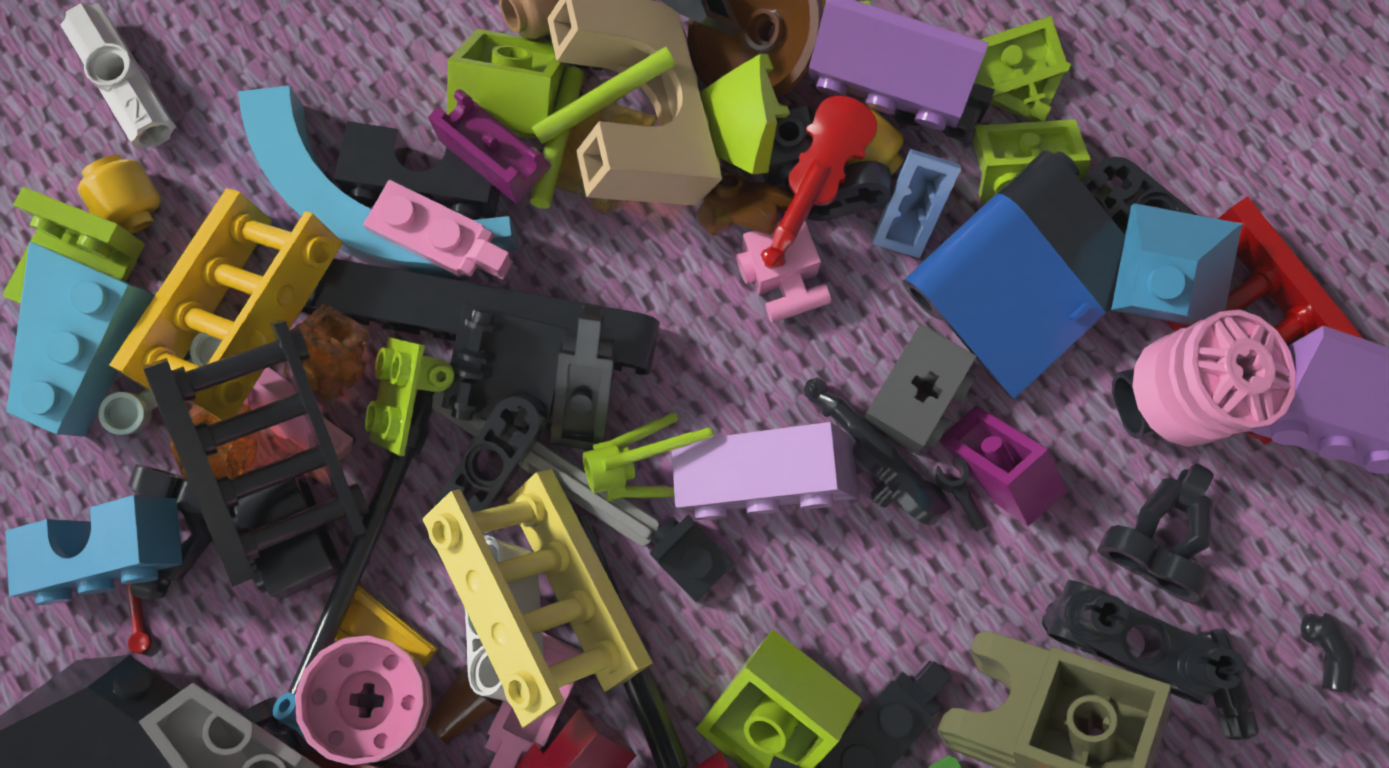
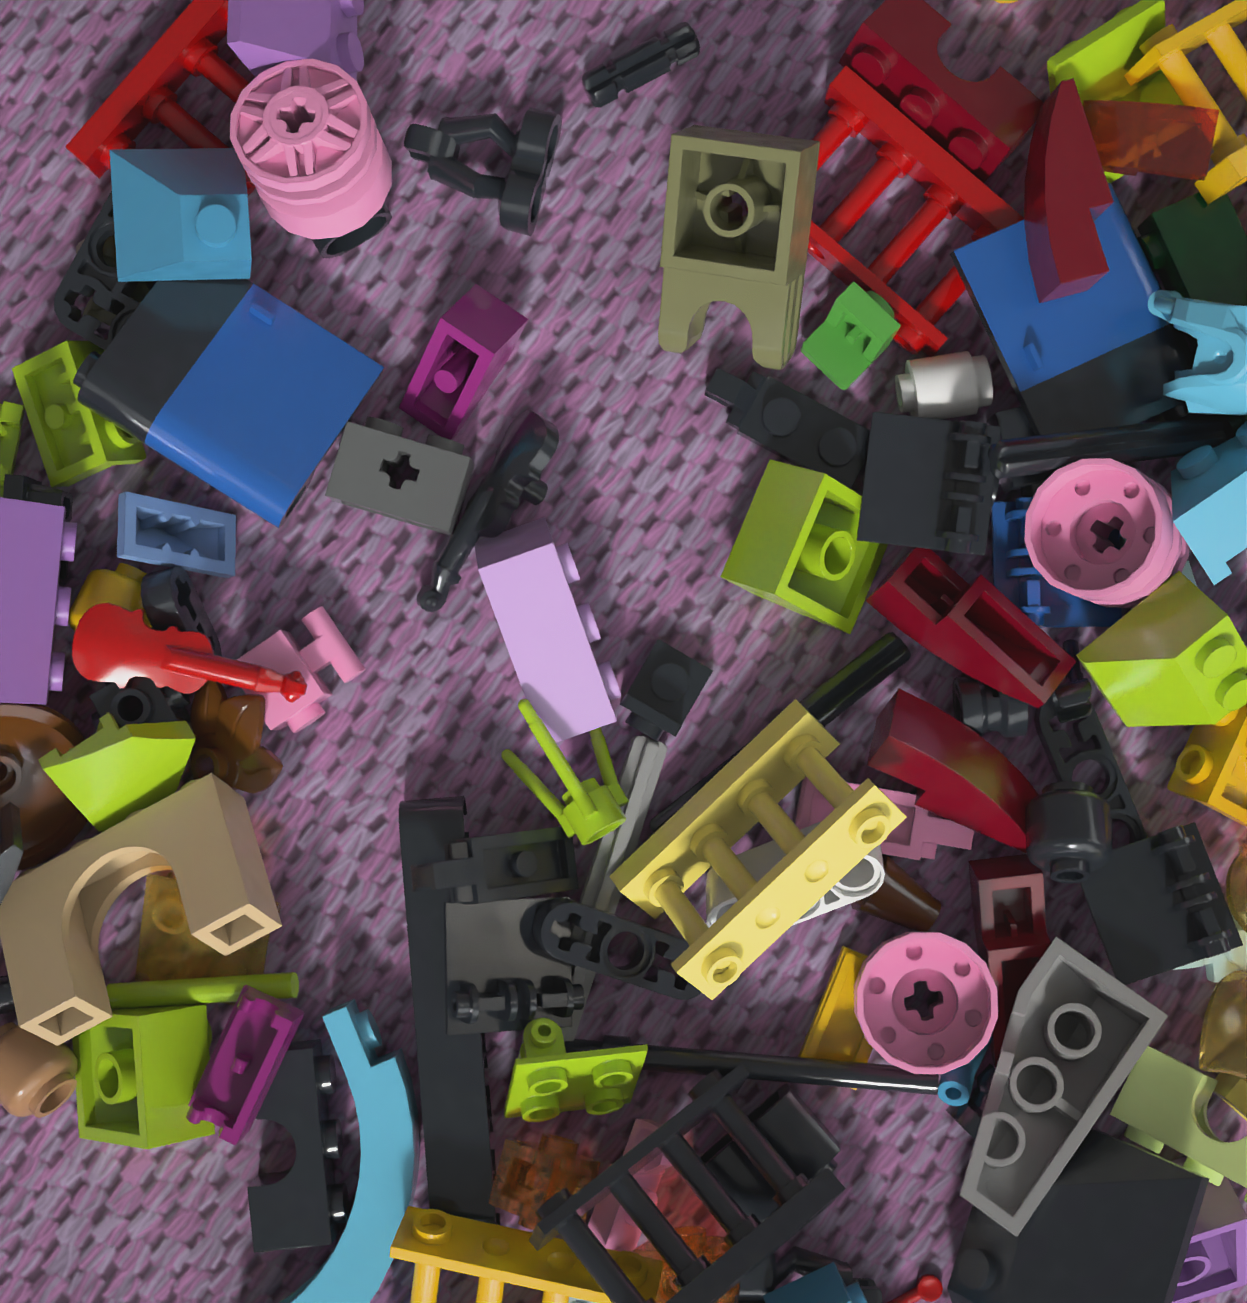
camera: 100 degrees left, 10 degrees up
(435, 233) = (368, 1097): bright pink hinge -> none
(604, 95) = (140, 945): lime bar -> none
(961, 492) = (507, 400): black hand -> none
(1100, 624) = (635, 134): black piece -> none

